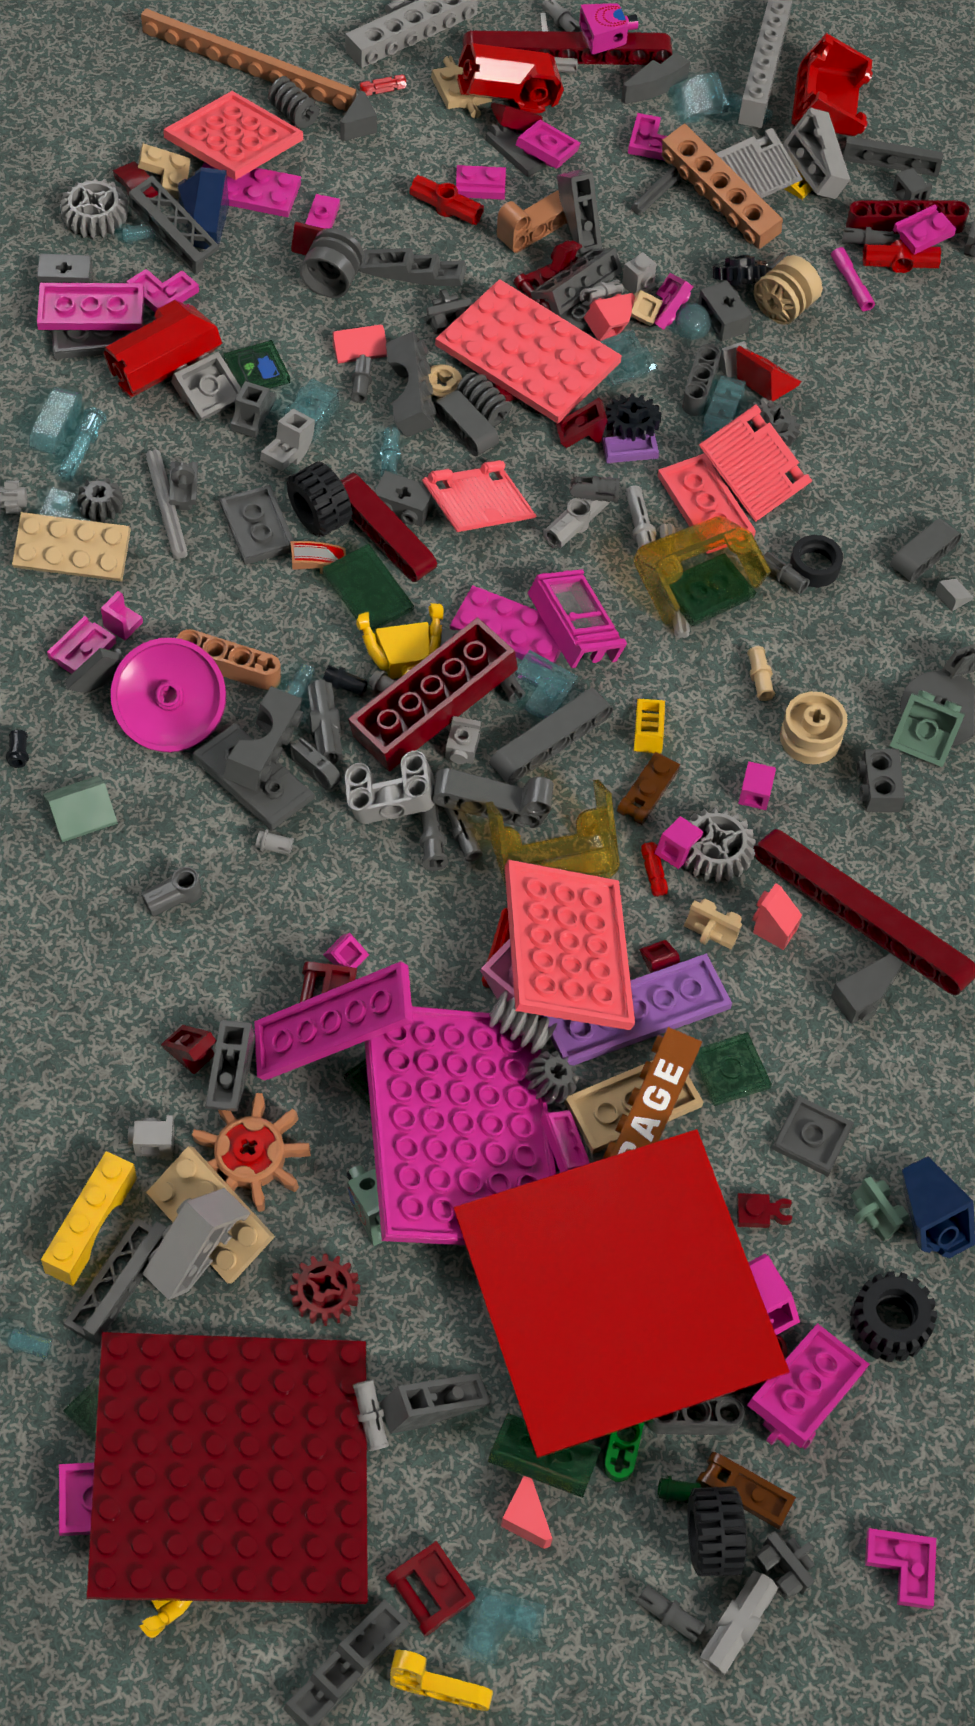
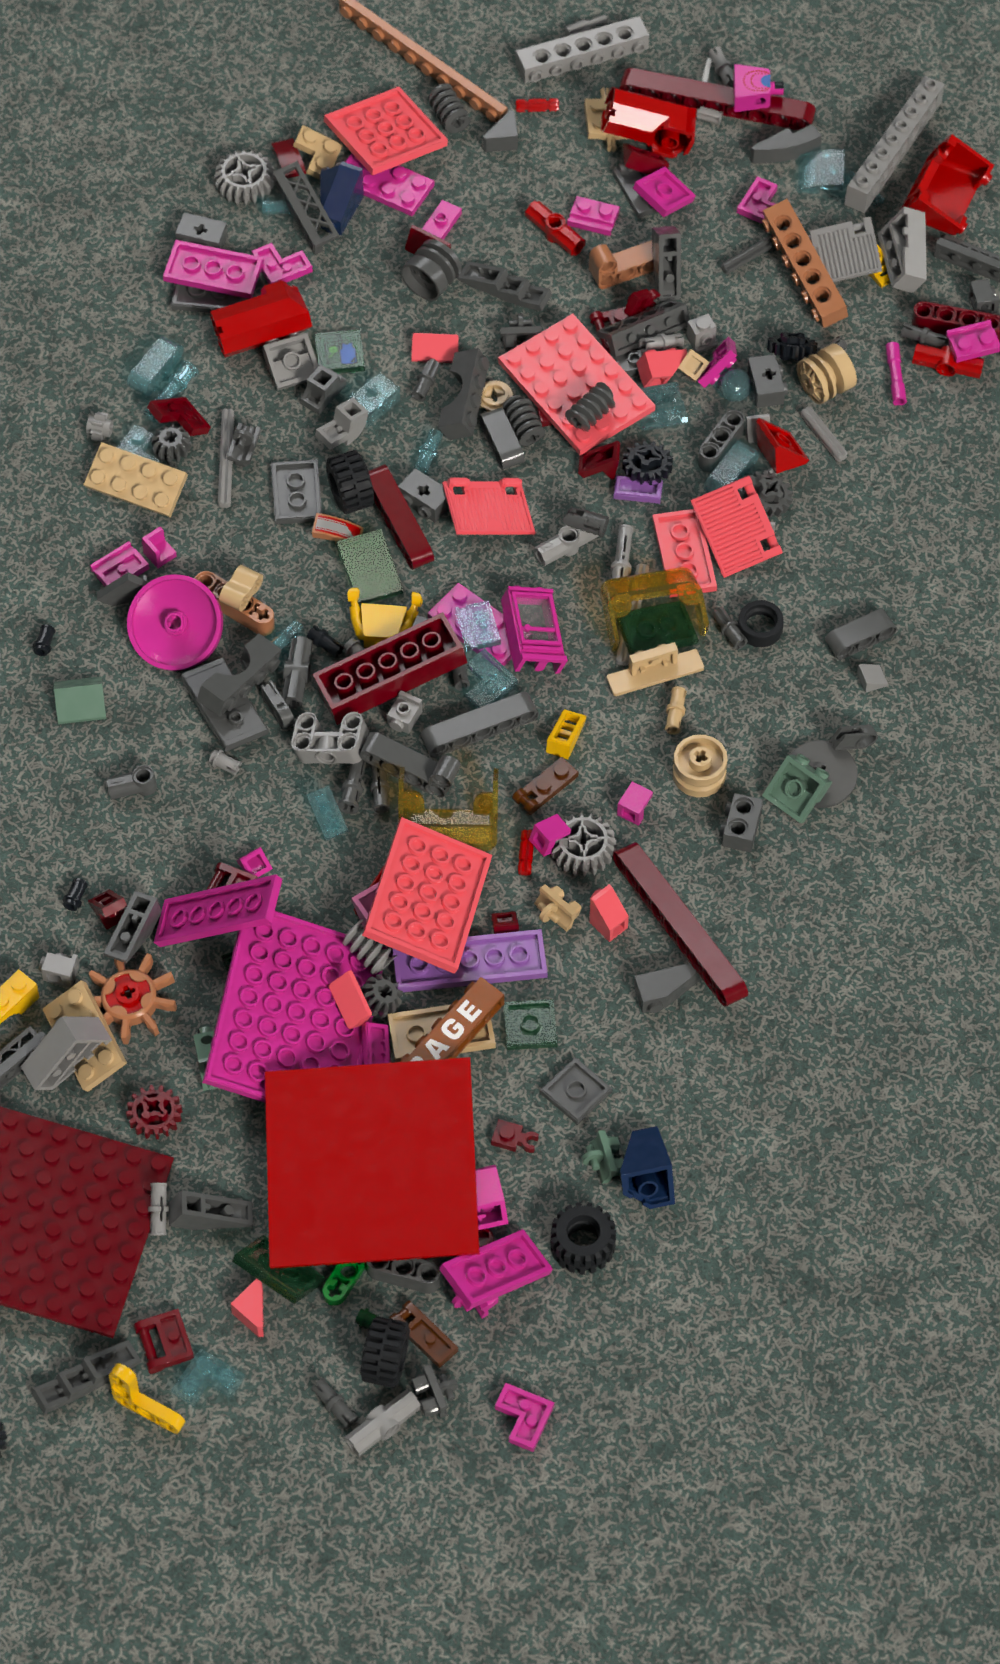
camera: 20 degrees right, 0 degrees up
(100, 462) = (179, 410): none -> dark red plate
(143, 1047) = (73, 898): none -> black pin
(234, 639) = (241, 588): none -> tan axle
(414, 875) = (327, 813): none -> clear light blue plate
(515, 625) = (478, 626): none -> clear light blue plate
(520, 1091) = (350, 1000): none -> coral slope
(560, 367) = (591, 407): none -> dark grey piece
(721, 632) = (654, 667): none -> tan bracket
(803, 353) = (824, 434): none -> light grey axle

